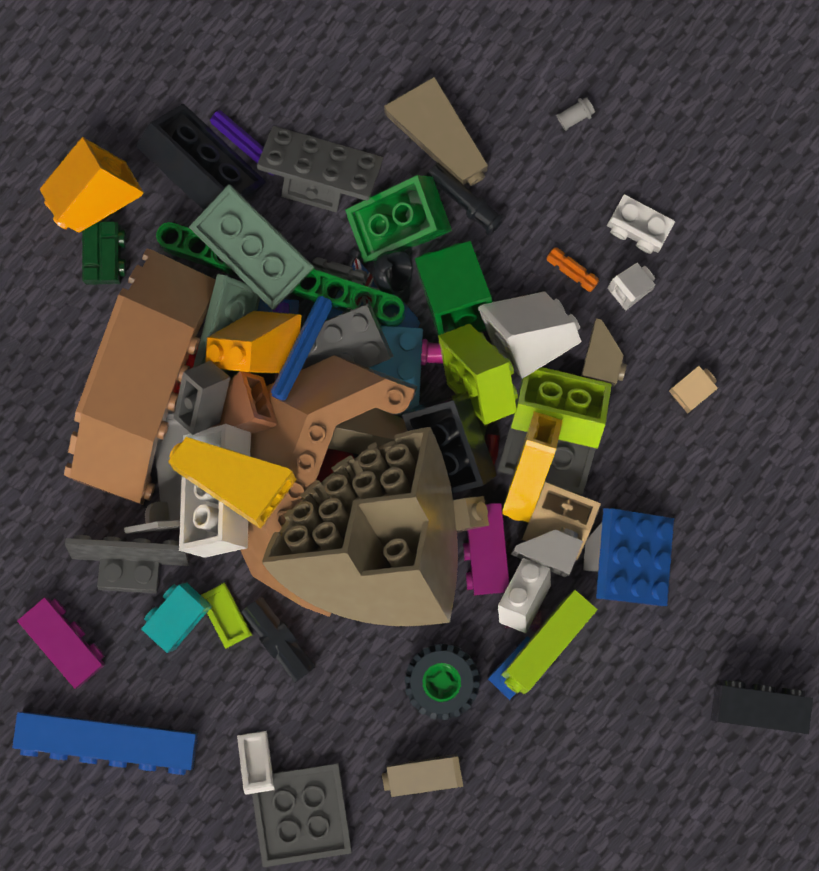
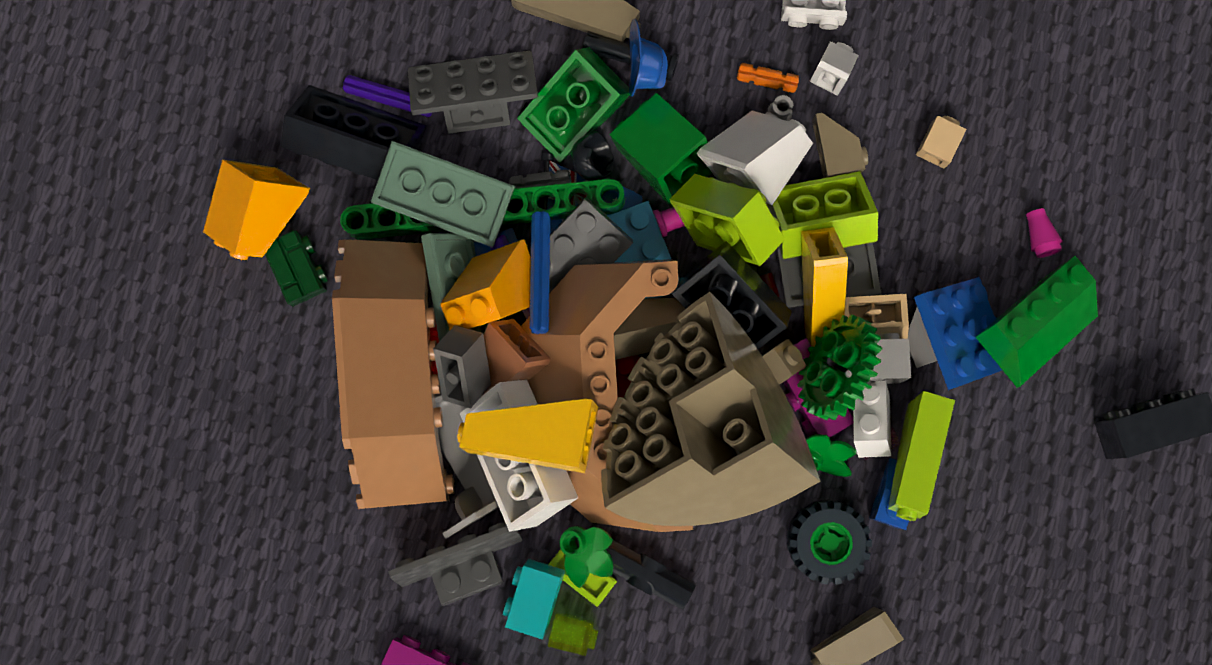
camera: 25 degrees left, 0 degrees up
(194, 661) = (572, 634): none -> clear neon green brick
(235, 602) = (589, 556): none -> green plate
(473, 213) = (647, 62): none -> blue piece
(473, 609) = (830, 455): none -> green plate
(495, 549) = (851, 345): none -> green gear
(571, 294) = (782, 102): none -> light grey pin
(706, 579) = (1042, 321): none -> green slope
(744, 506) = (1043, 235): none -> dark pink cone

